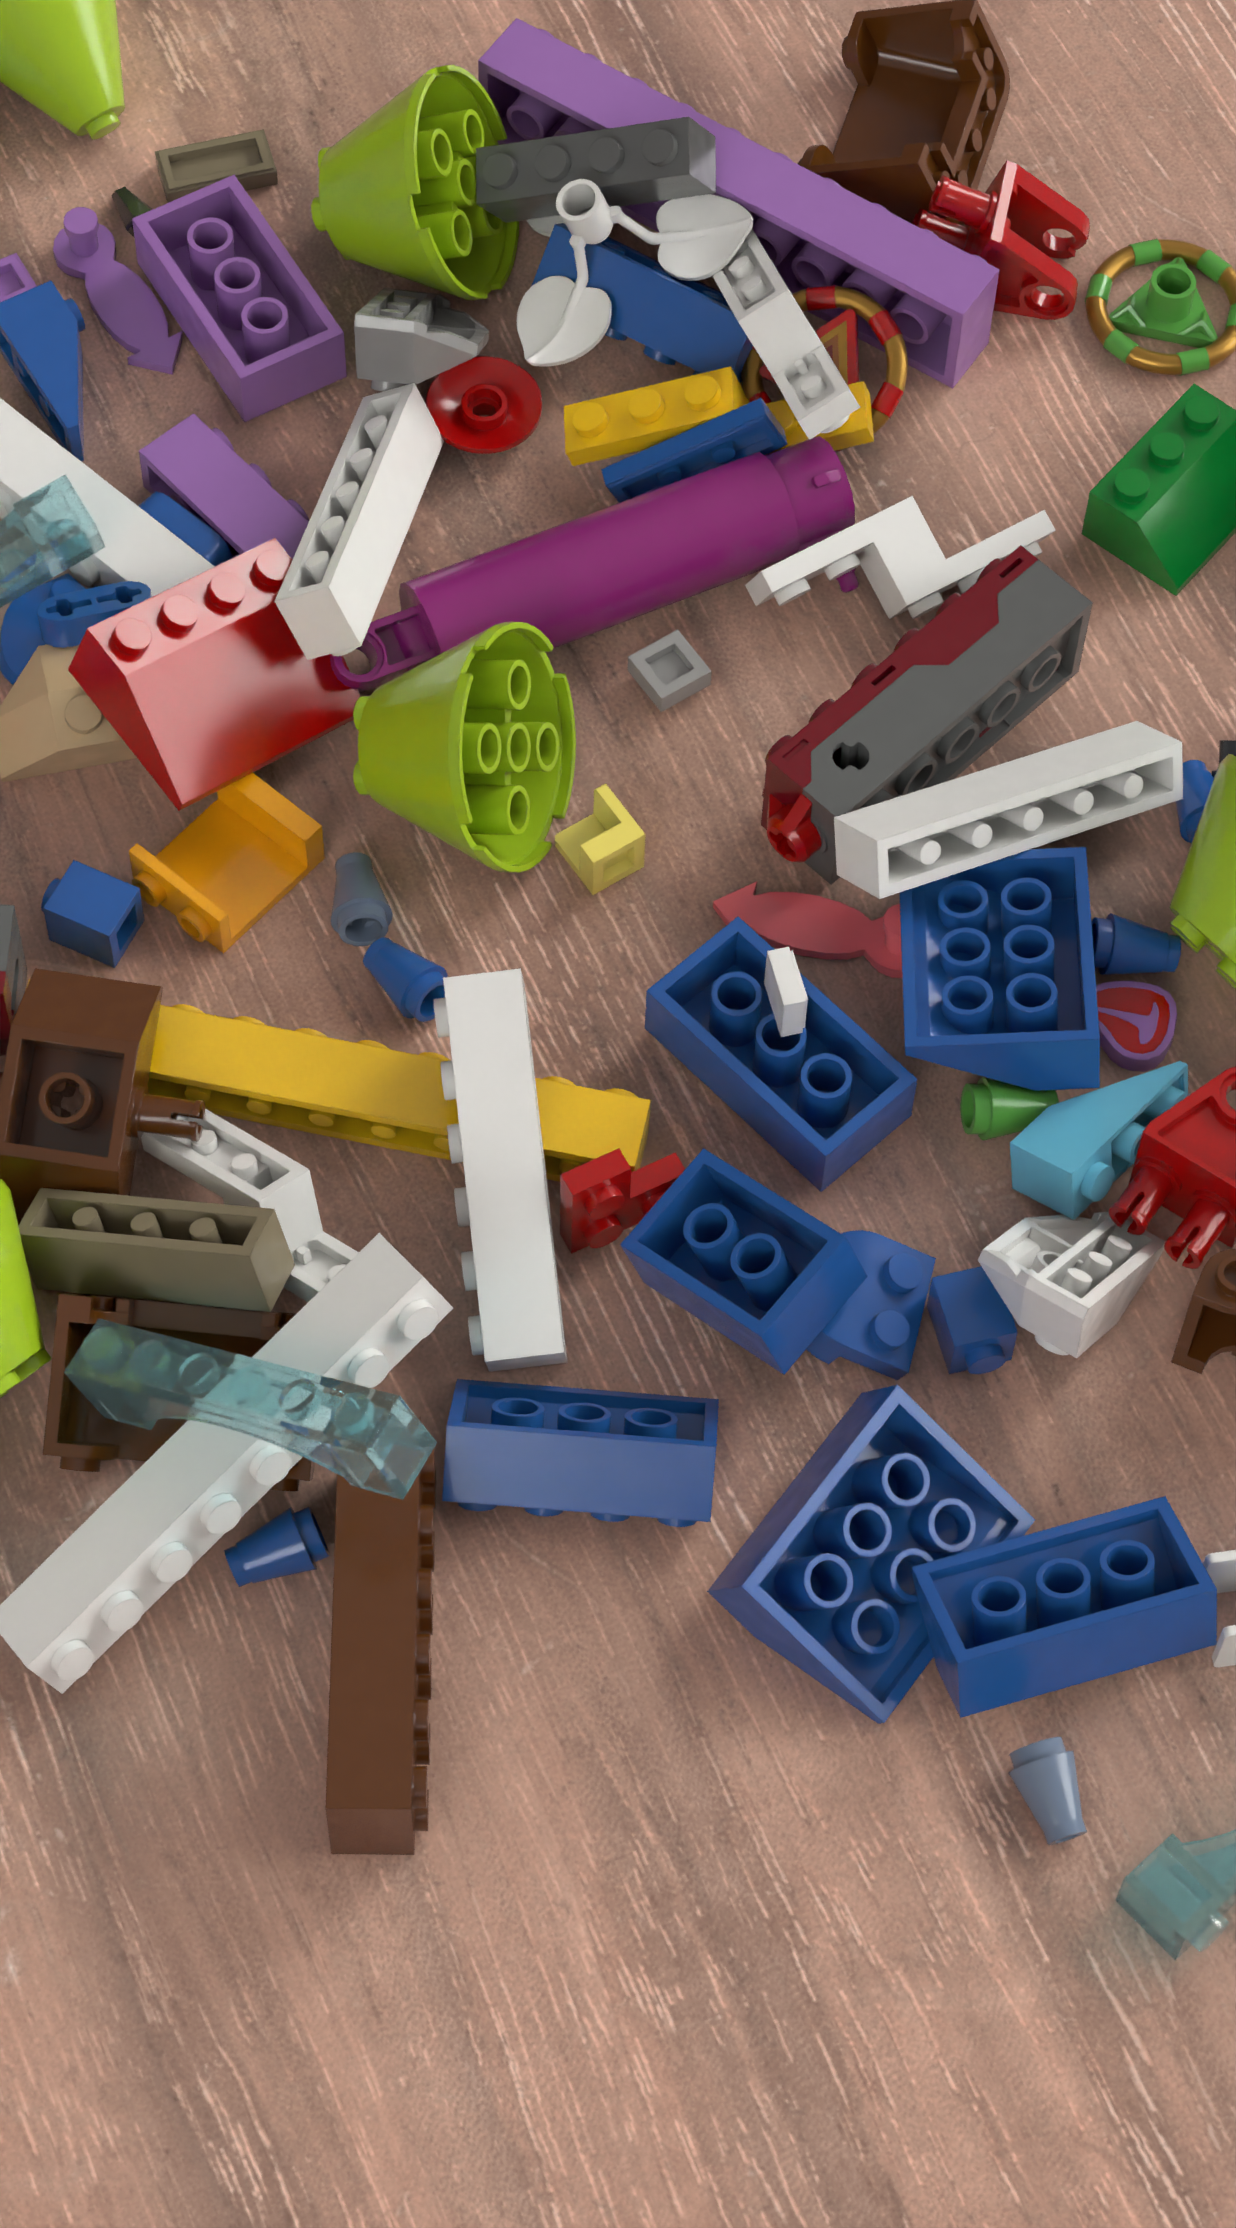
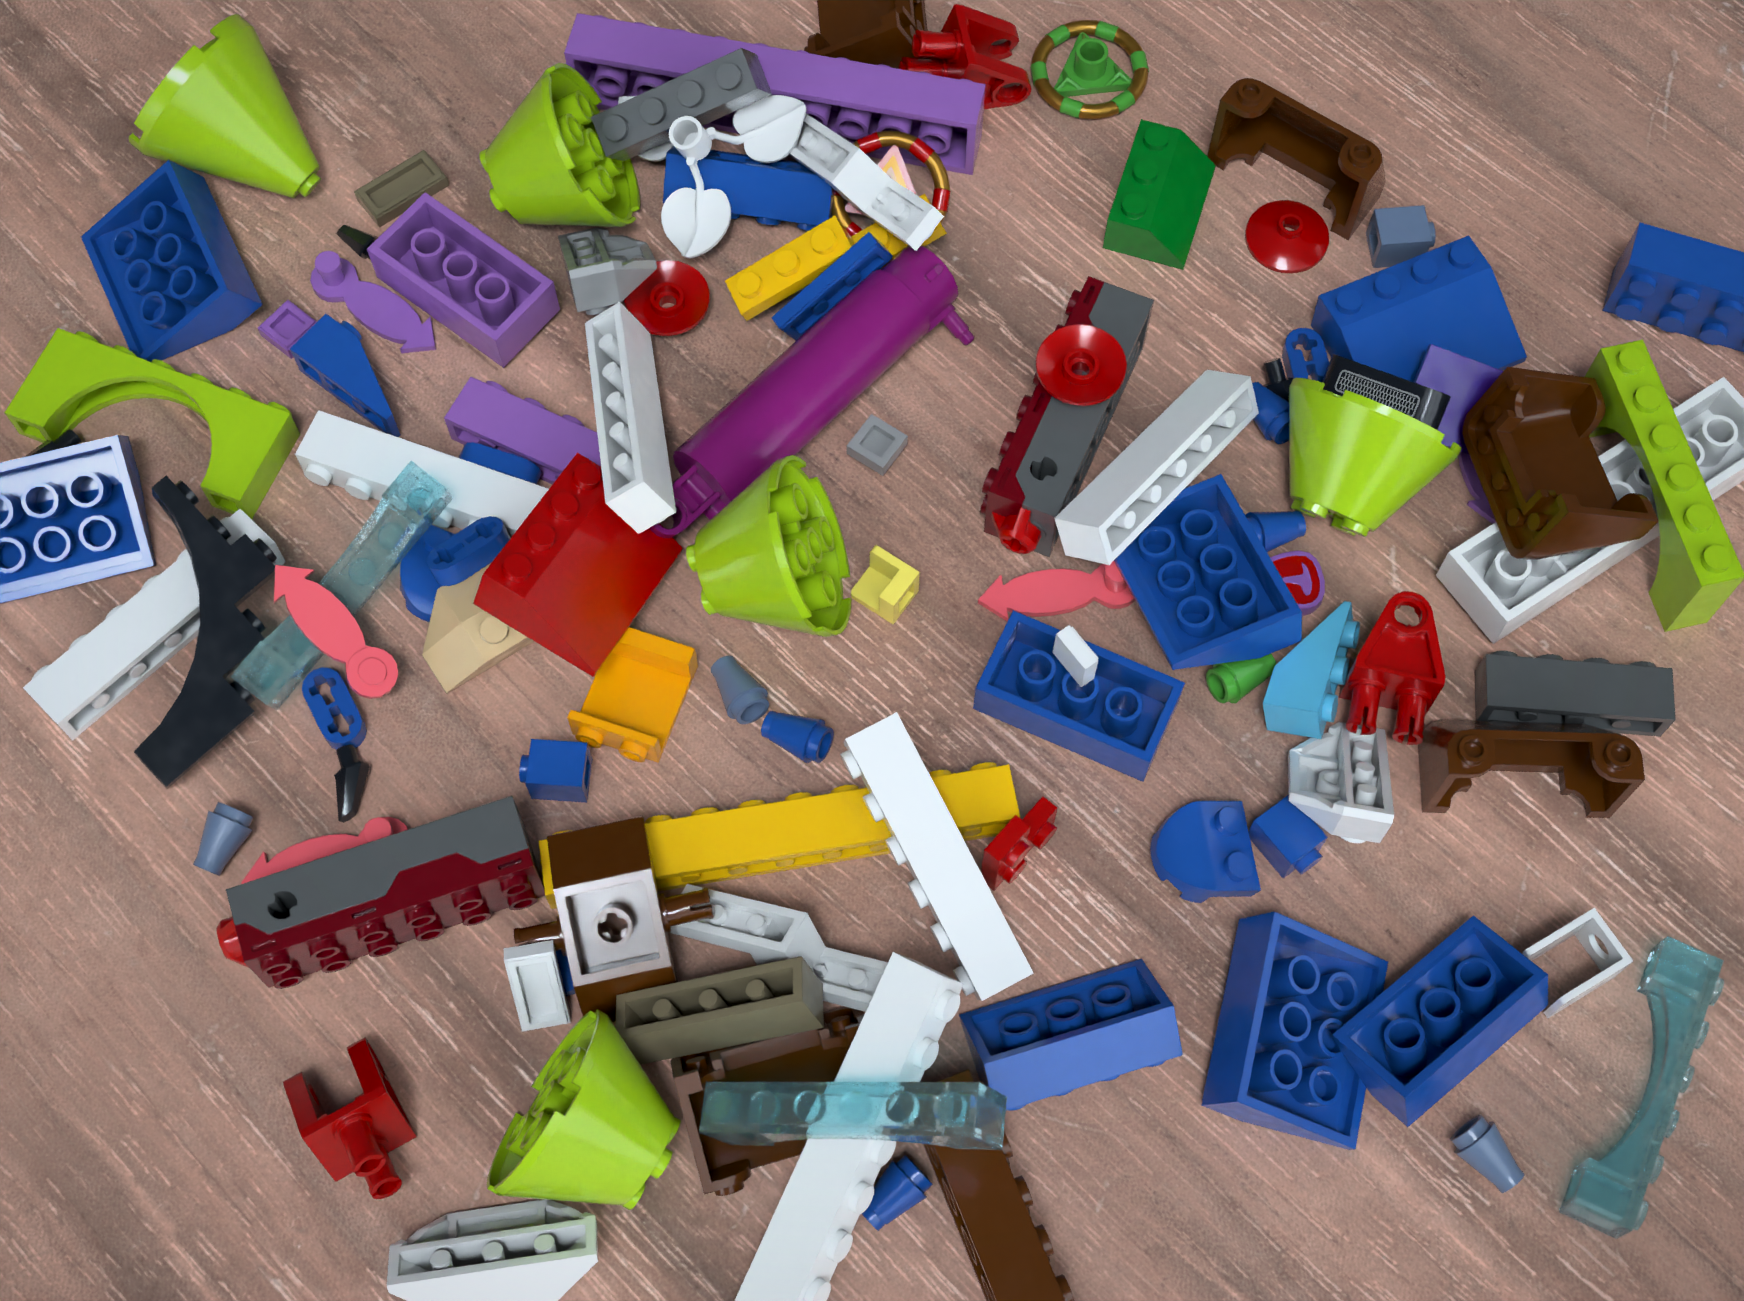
camera: 20 degrees left, 5 degrees up
(744, 1260) = (1127, 858): blue brick -> none
(897, 559) = (1000, 311): white bracket -> none
(957, 625) = (1082, 349): none -> red dish

